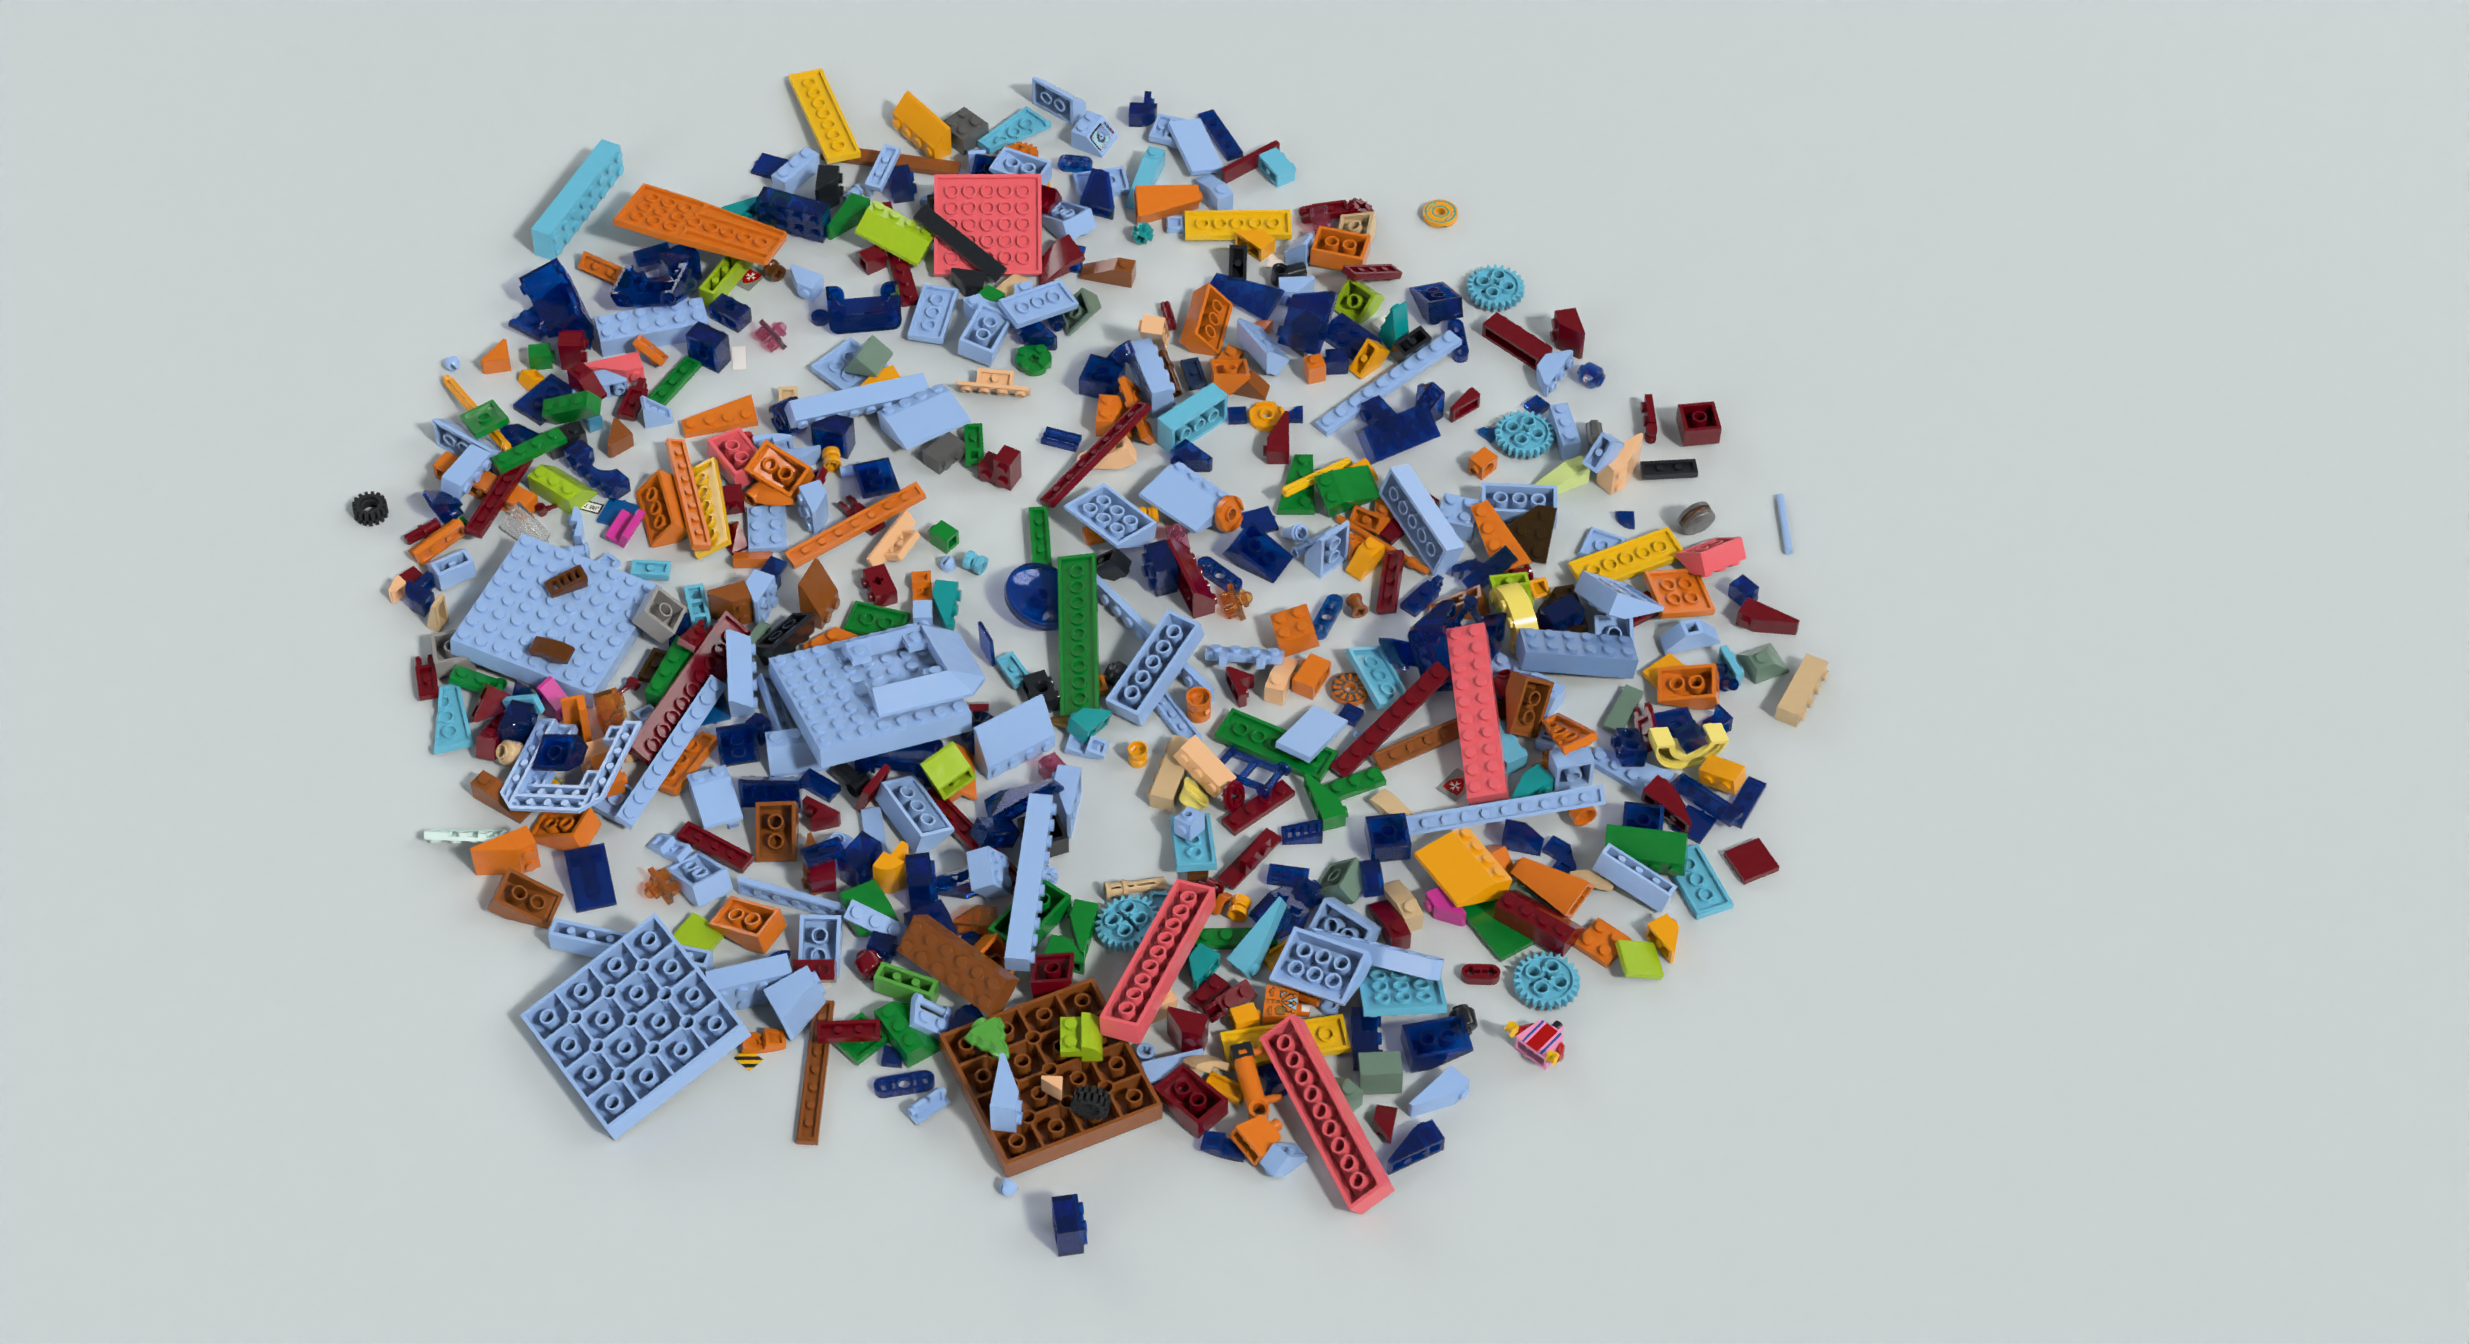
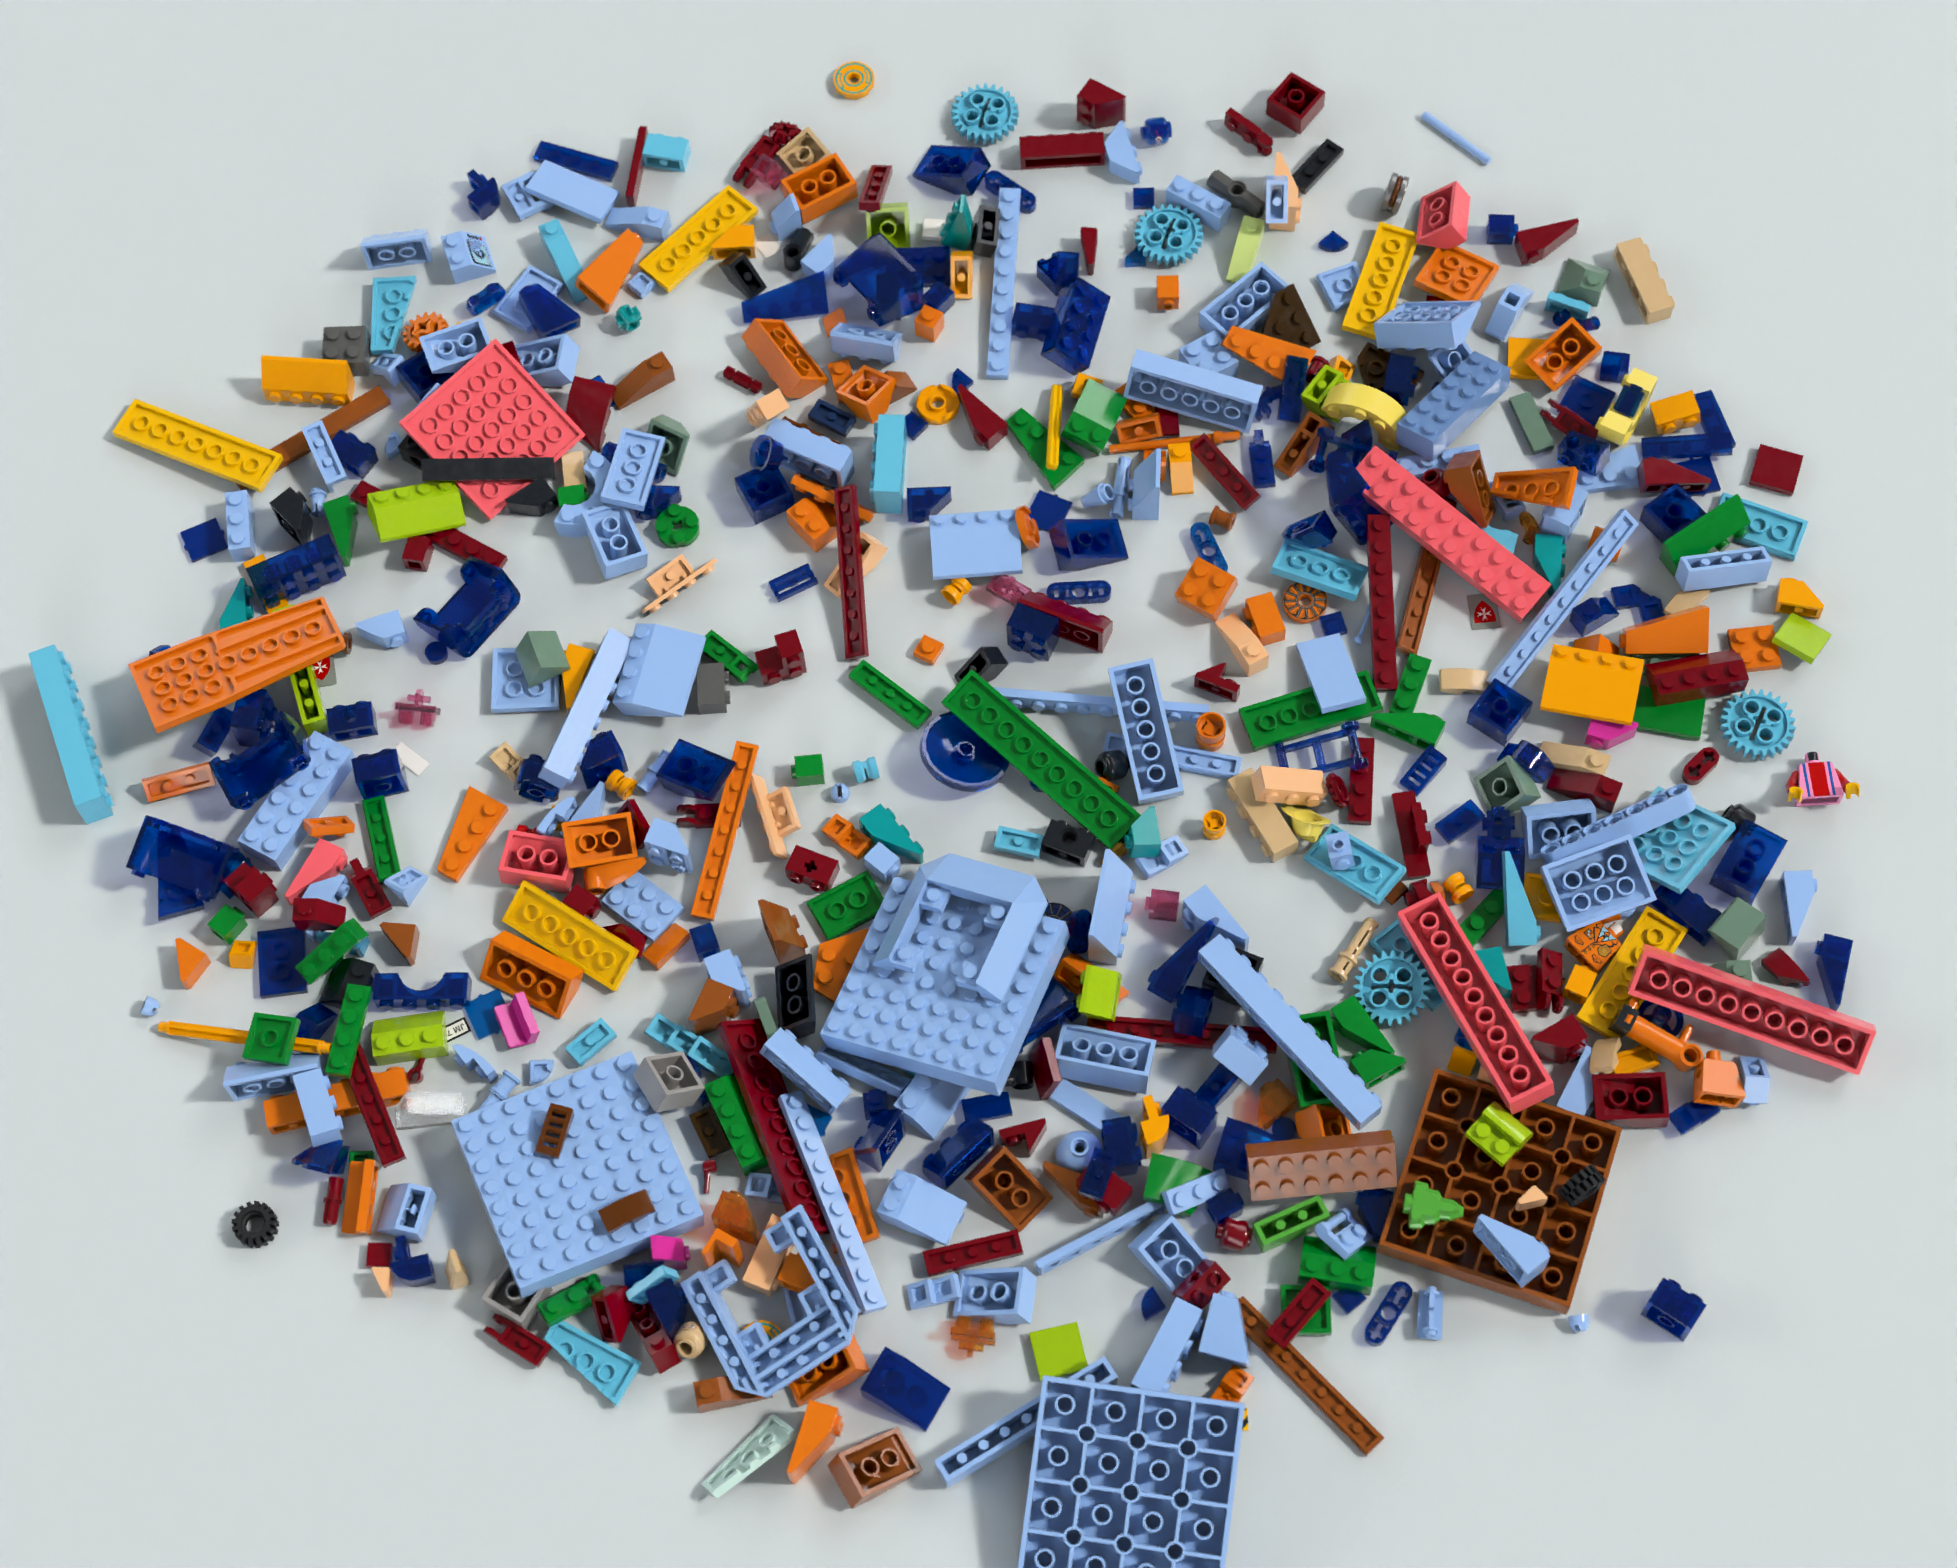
camera: 40 degrees left, 15 degrees up
(559, 752) = (749, 1303): clear blue slope -> none
(688, 494) = (542, 938): orange plate -> none
(694, 636) = (724, 1072): dark red hinge -> none
(749, 923) = (1091, 1297): orange slope -> none
(933, 314) = (537, 559): light blue plate -> none
(986, 643) = (974, 839): clear blue piece -> none
(1051, 973) = (1399, 1095): dark red slope -> none
(1113, 517) = (938, 621): light blue slope -> none
(1231, 596) = (1131, 613): clear orange hips -> none
(1246, 655) = (1191, 649): light blue hinge -> none

